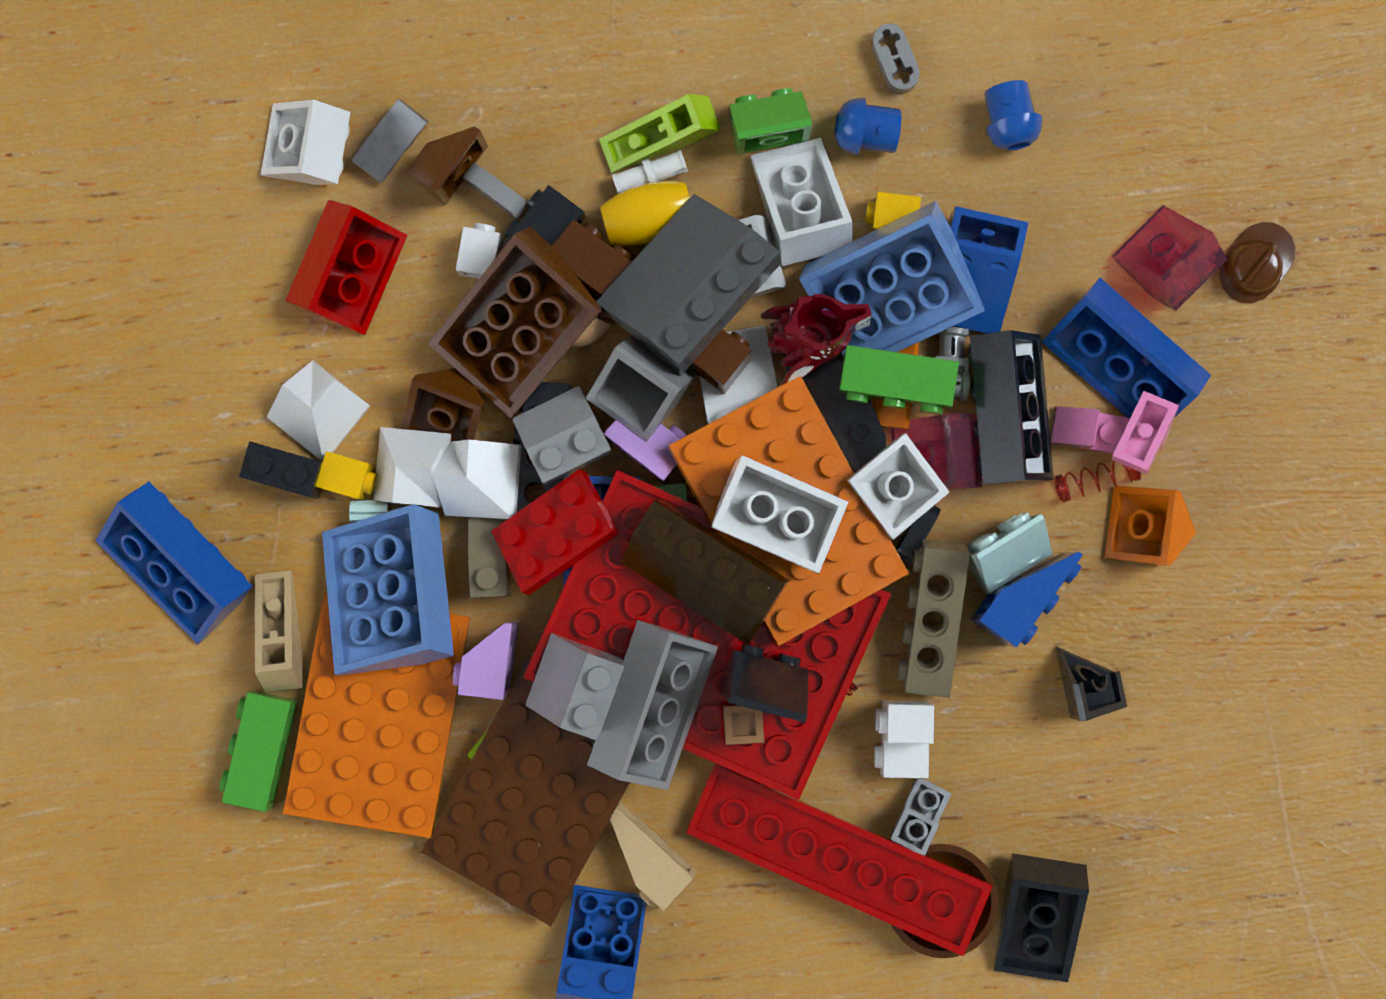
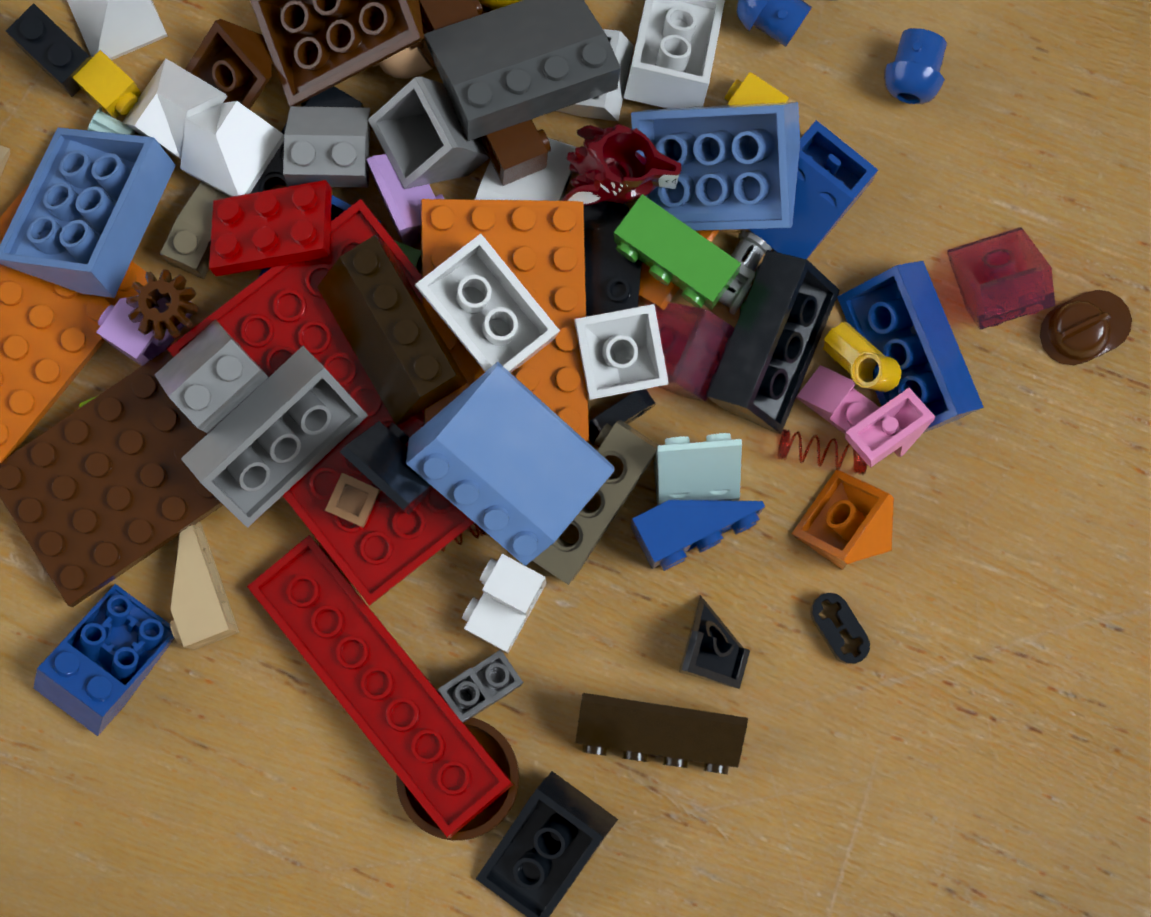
camera: 25 degrees right, 5 degrees down
(504, 659) = (173, 292): none -> reddish brown gear
(859, 631) = (508, 463): none -> medium blue slope
(1085, 776) = (660, 731): none -> dark brown slope
(1089, 386) = (860, 358): none -> yellow piece
(1188, 608) = (848, 623): none -> black beam

